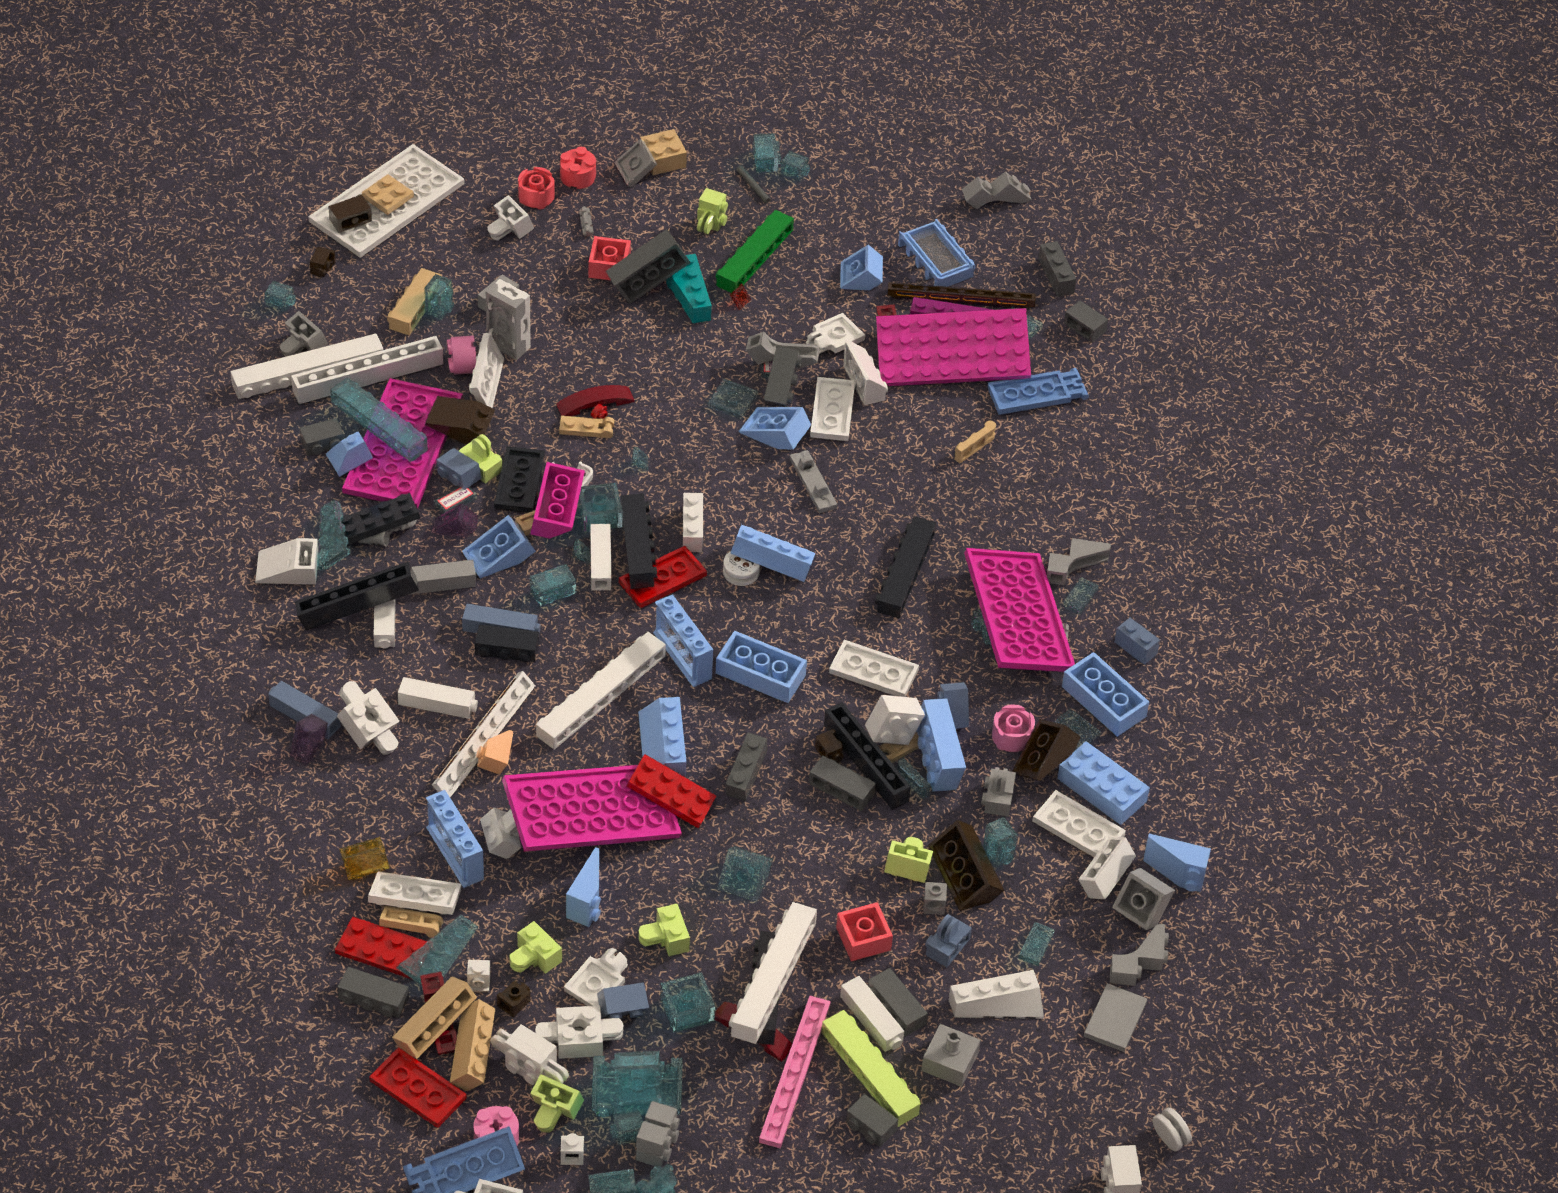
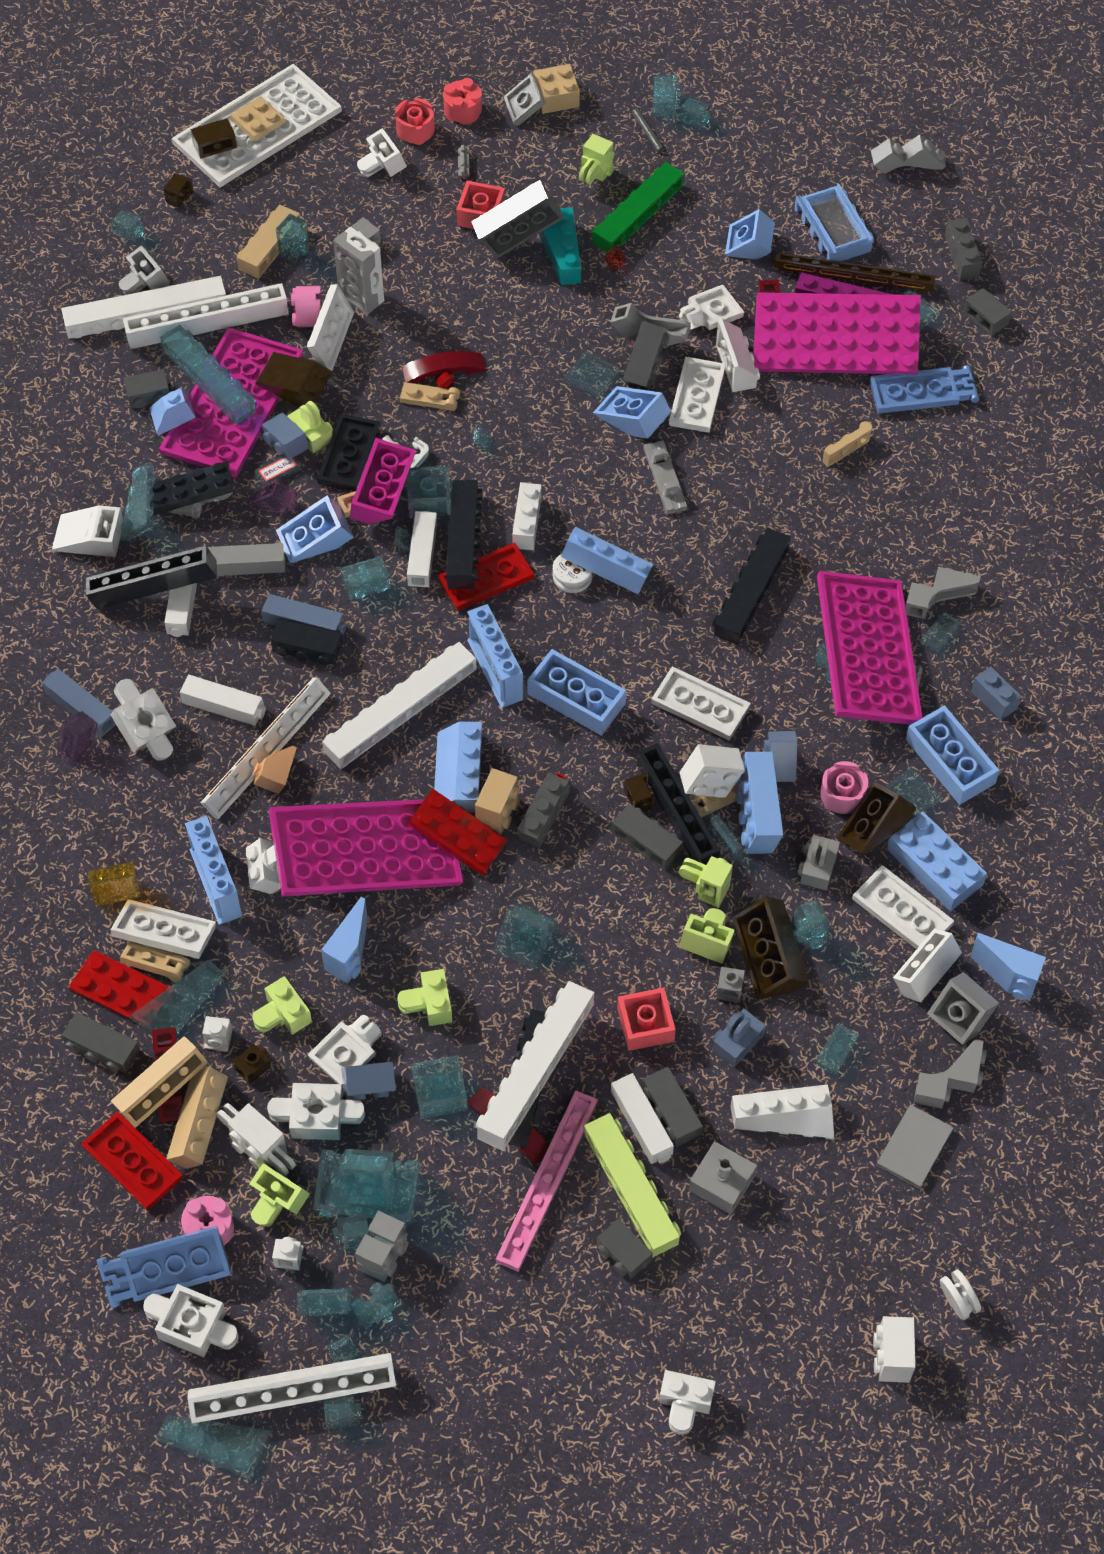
camera: 10 degrees right, 10 degrees up
(705, 760) = (498, 800): none -> tan brick
(905, 811) = (710, 879): none -> yellowish green brick

